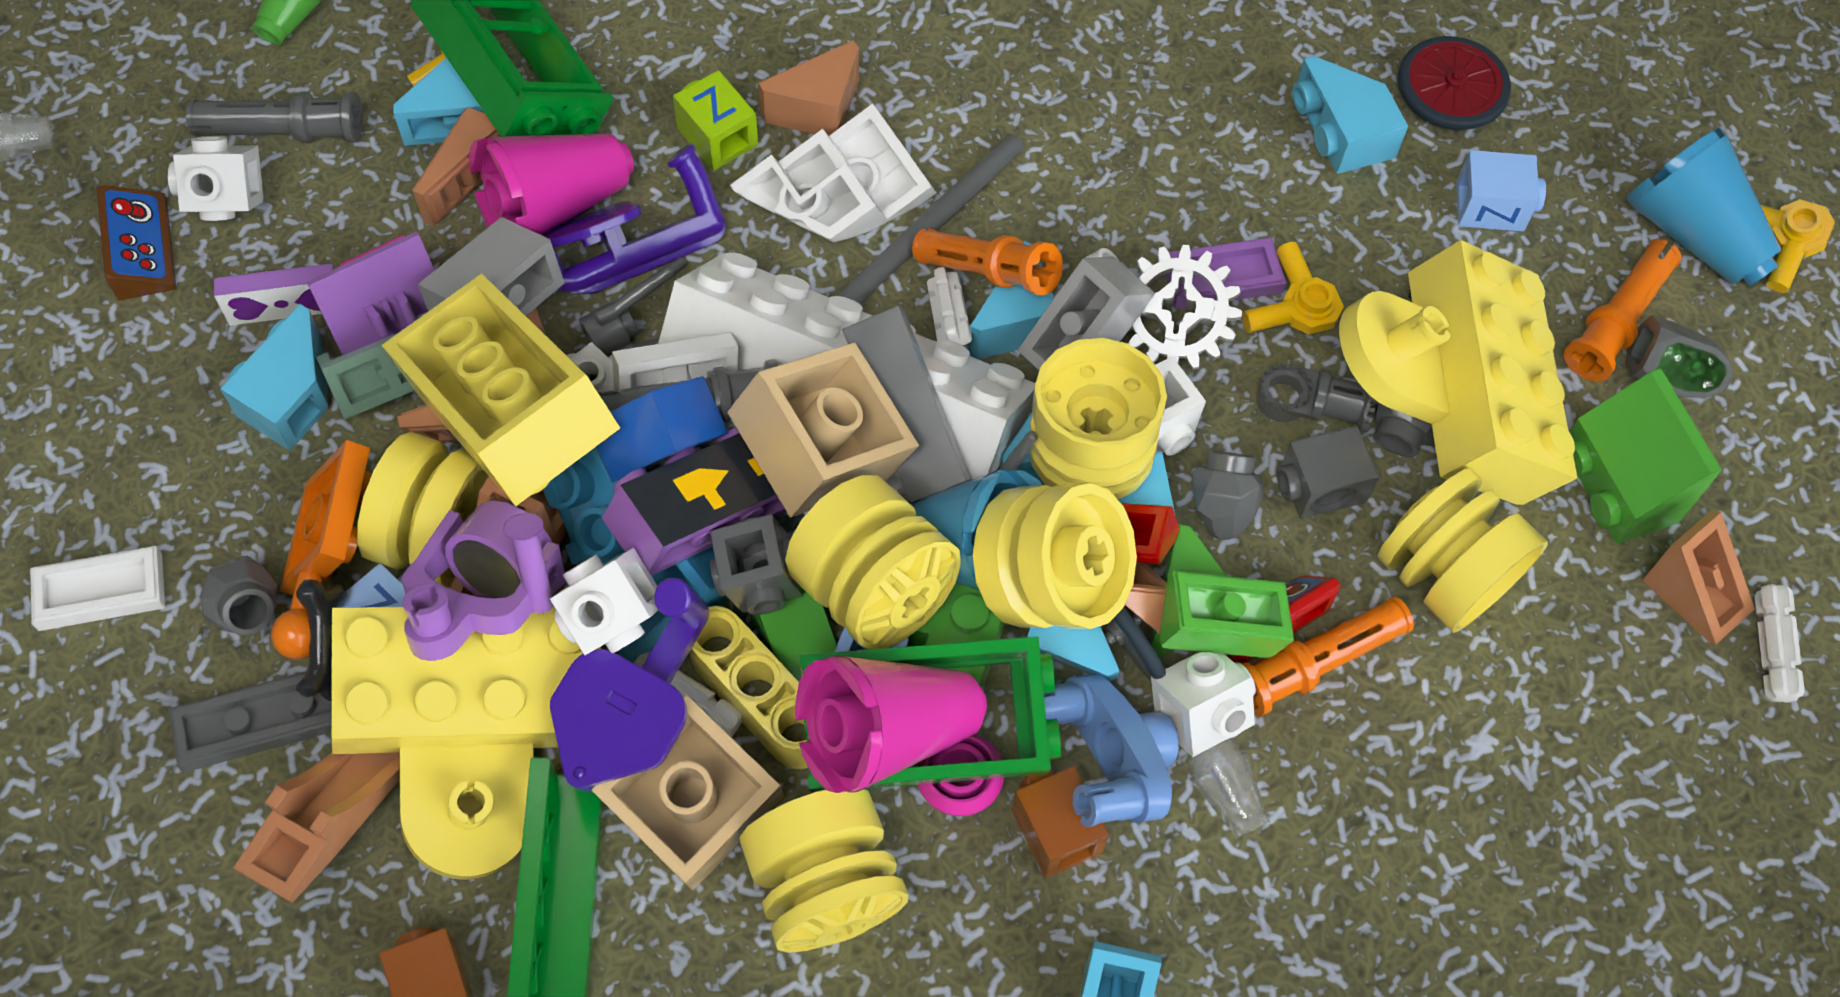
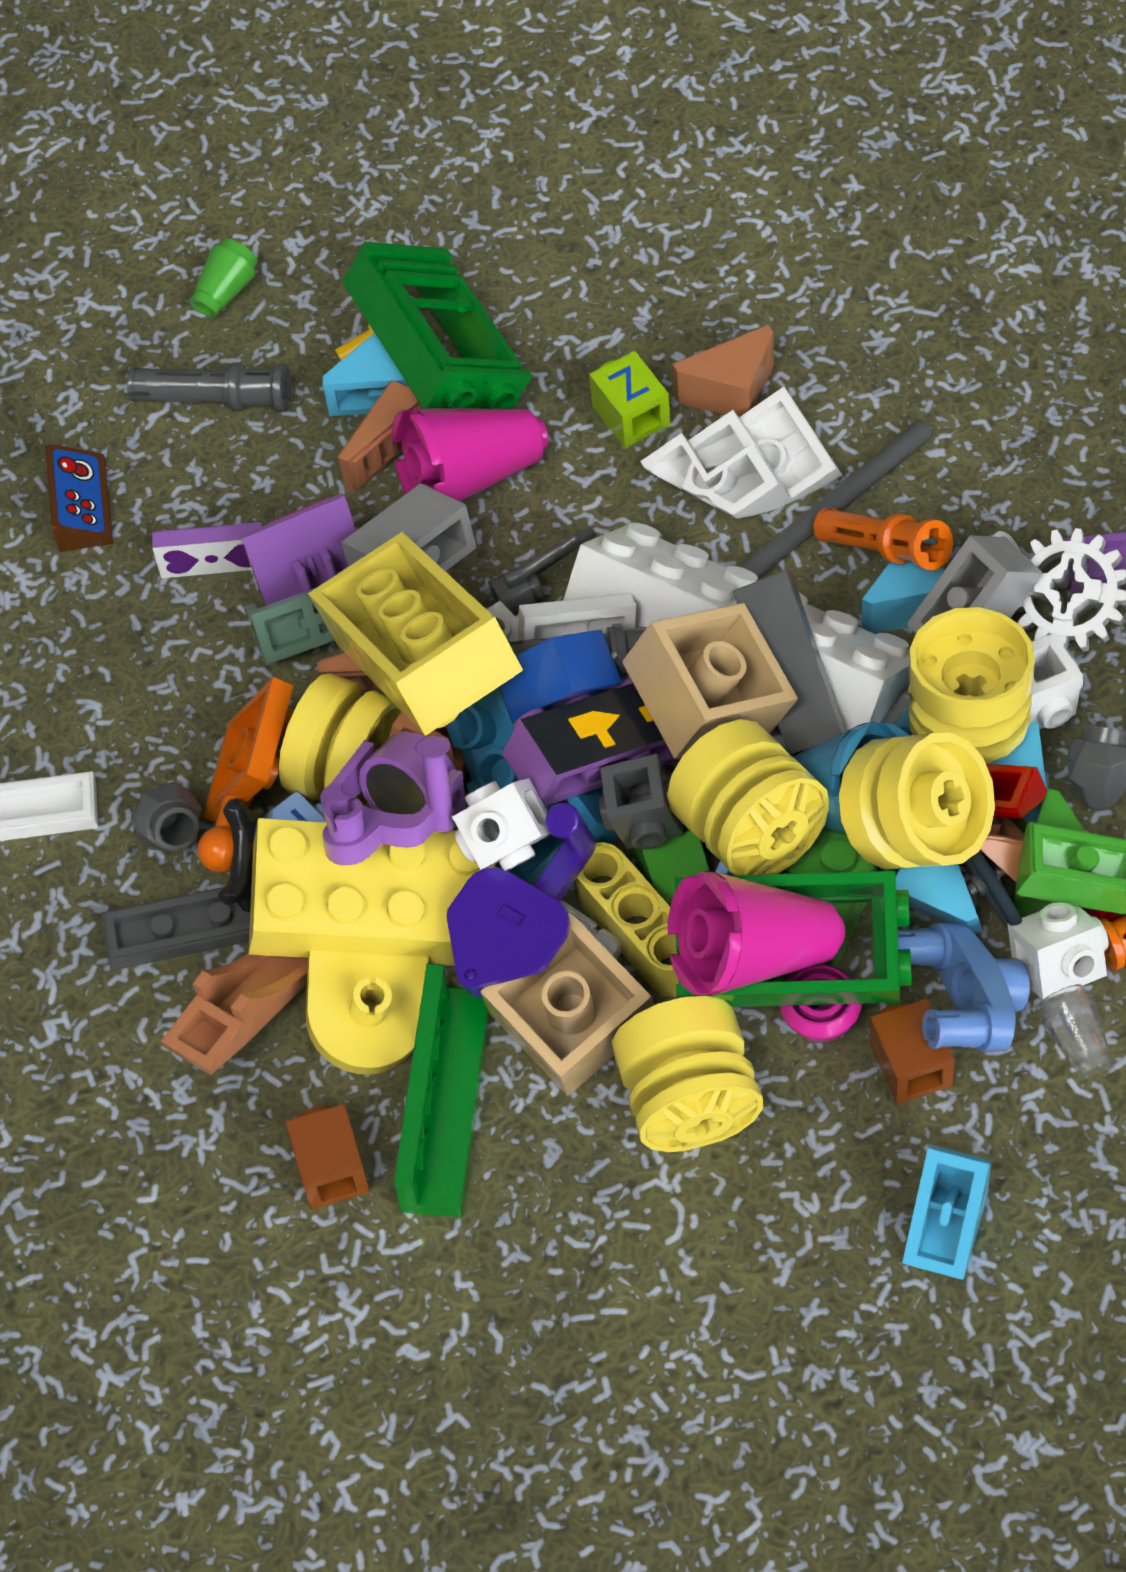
camera: 15 degrees right, 5 degrees down
(216, 178) = (172, 438): white brick -> none
(282, 383) = (210, 630): medium azure slope -> none
(645, 252) = (559, 521): dark purple piece -> none
(949, 307) = (844, 581): white axle -> none

